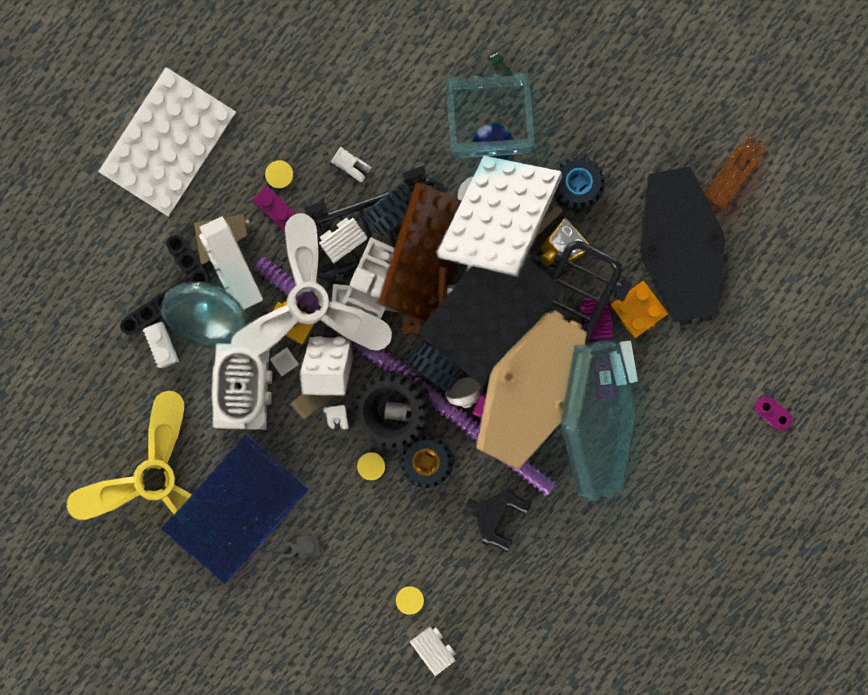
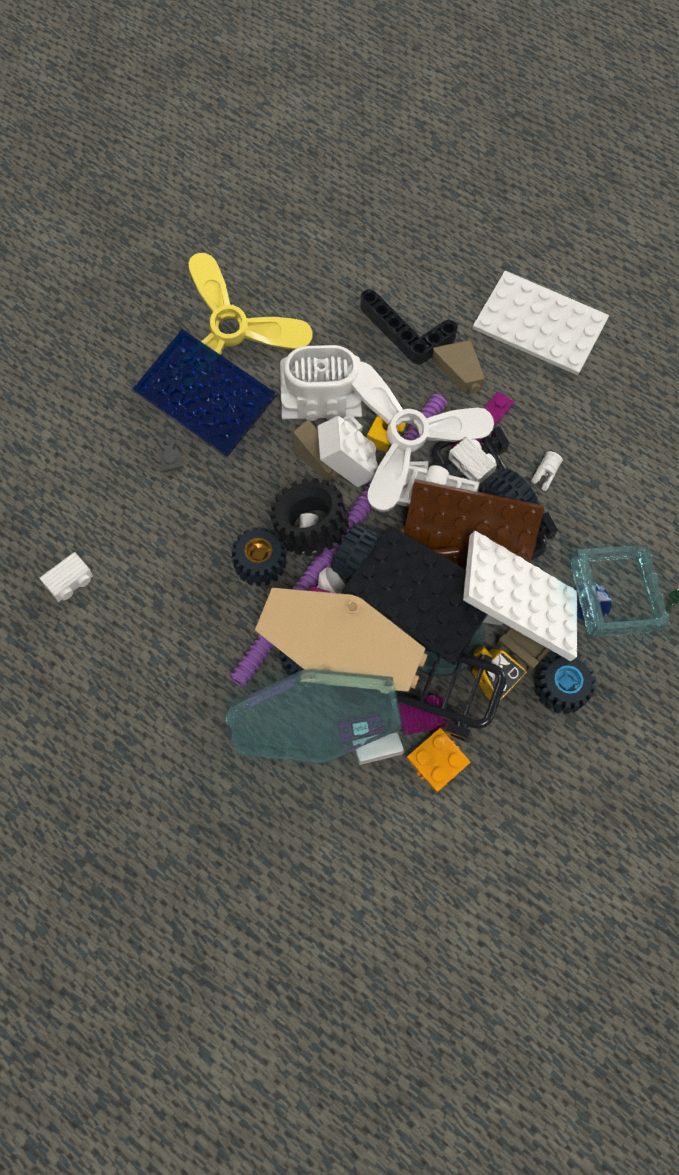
camera: 85 degrees right, 20 degrees down
(161, 345) = (353, 324): white brick -> none
(202, 313) = (389, 342): clear light blue dish -> none
(228, 258) = (437, 363): white brick -> none
(279, 174) = (526, 412): light yellow piece -> none
(336, 413) = (300, 470): white hinge -> none
(371, 466) = (252, 509): light yellow piece -> none
(409, 600) = (118, 554): light yellow piece -> none
(490, 512) = (209, 622): black connector -> none
(682, 245) = (514, 800): black container -> none
(730, 177) = (597, 851): clear orange hinge -> none
(773, 414) = (336, 922): magenta plate -> none

